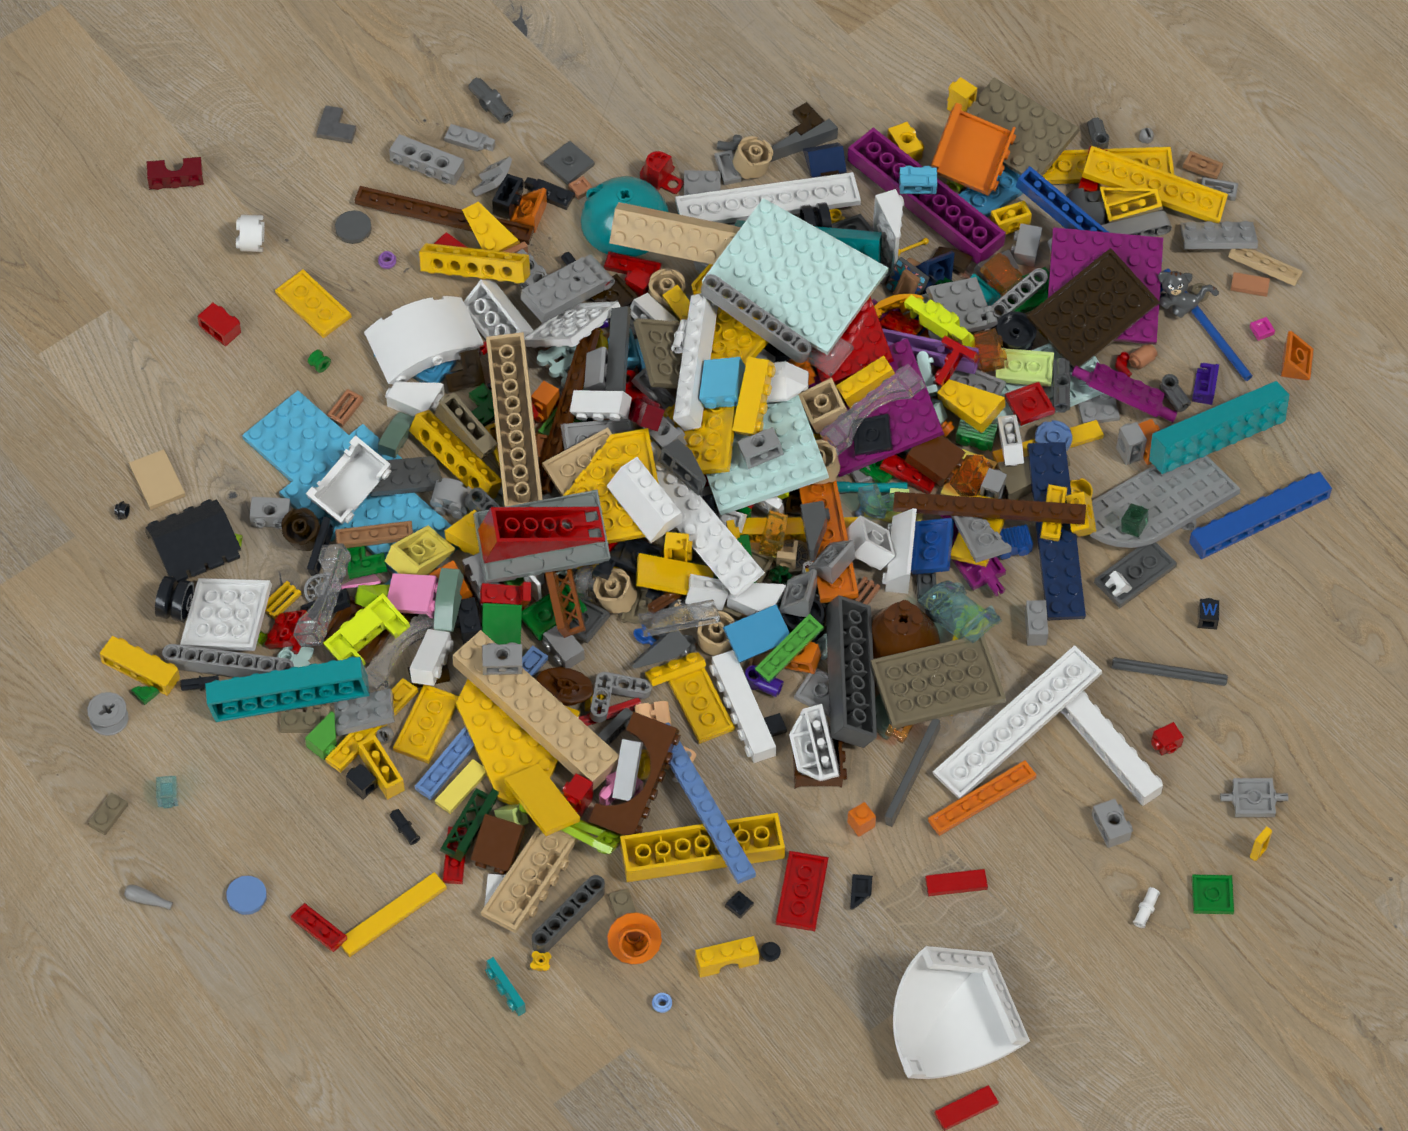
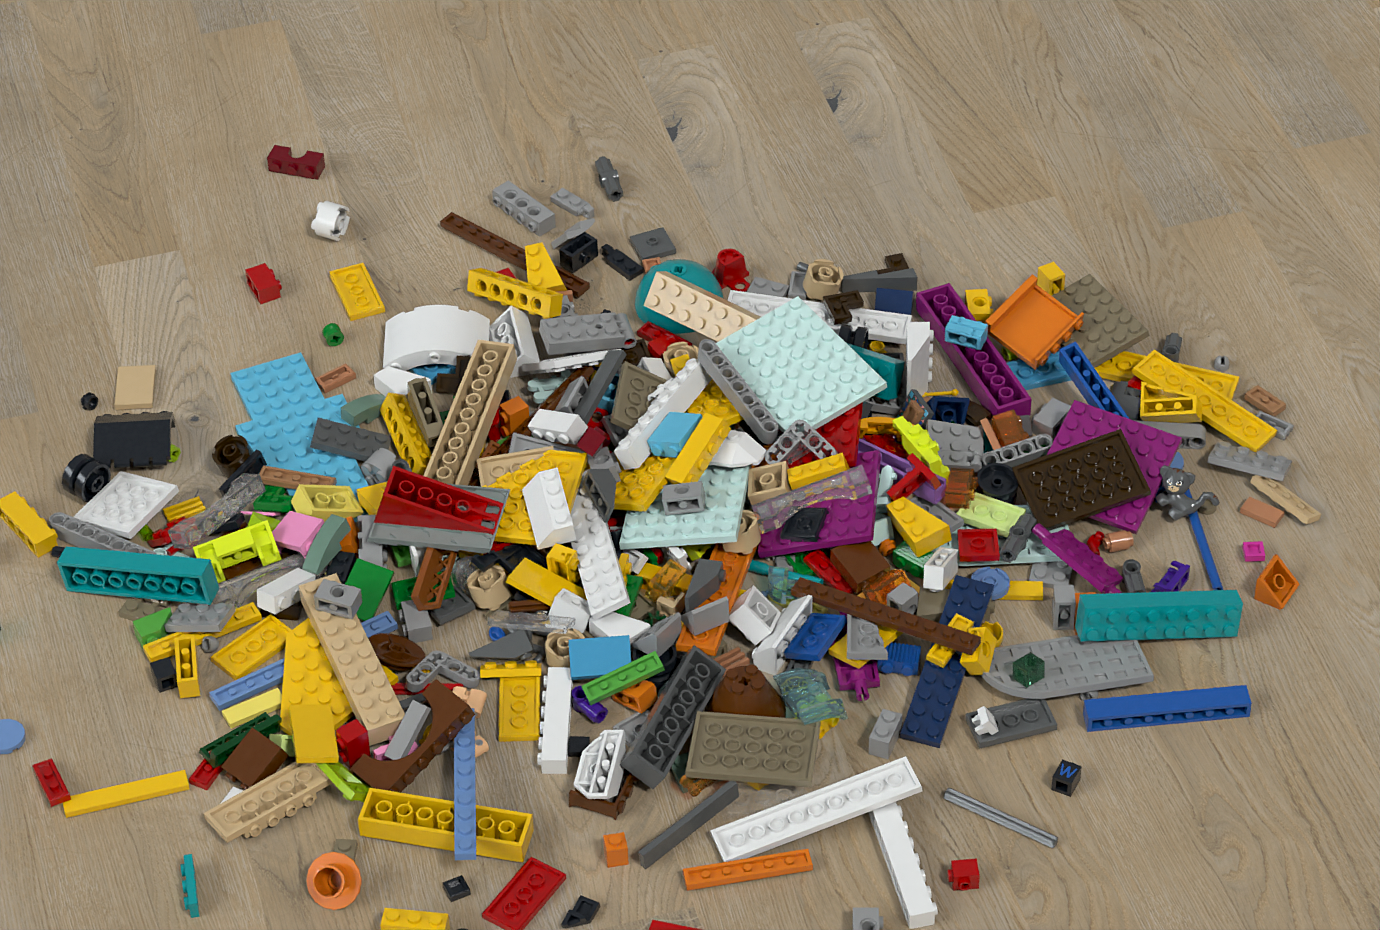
camera: 25 degrees right, 15 degrees down
(145, 693) = (19, 549): green tile -> none
(263, 505) = (210, 433): light grey brick -> none
(332, 129) = (457, 164): flat silver tile -> none
(350, 481) = (293, 426): white windscreen -> none
(353, 226) = (428, 242): dark grey tile -> none
(384, 256) = (442, 275): medium lavender plate -> none
(404, 826) = (181, 725): black axle -> none
(506, 594) = (385, 558): red bracket -> none
(530, 208) = (597, 270): orange slope -> none
(540, 966) = (239, 880): yellow plate -> none
(572, 906) = (286, 843): dark grey beam -> none
(786, 184) = (840, 304): none -> dark brown plate
(833, 352) = (797, 439): none -> light grey beam
(986, 282) = (990, 434): none -> nougat tile
(1011, 216) = (1044, 389): yellow brick -> none

